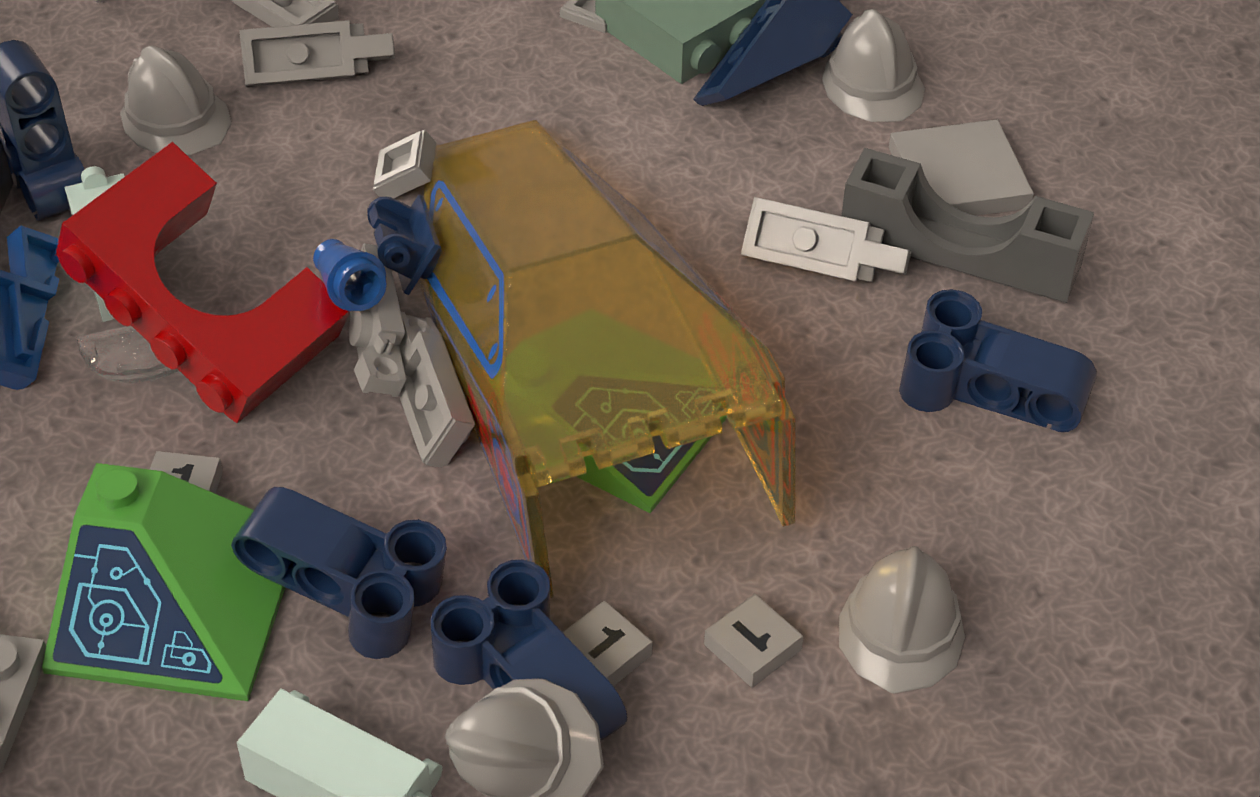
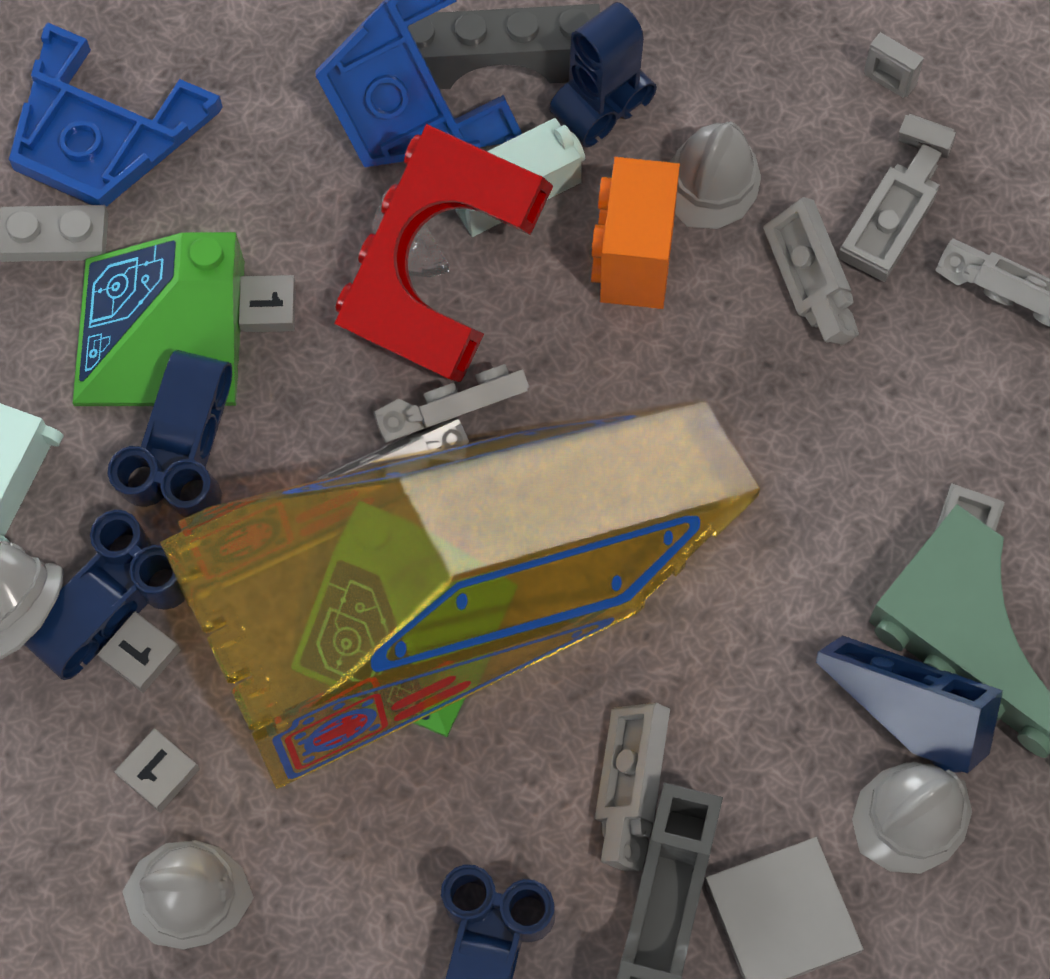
camera: 85 degrees right, 20 degrees up
(241, 135) = (635, 232): none -> orange brick
(350, 275) = (463, 363): blue cone -> none
(405, 165) = (669, 385): light grey tile -> none
(405, 238) = (527, 406): dark blue hinge -> none

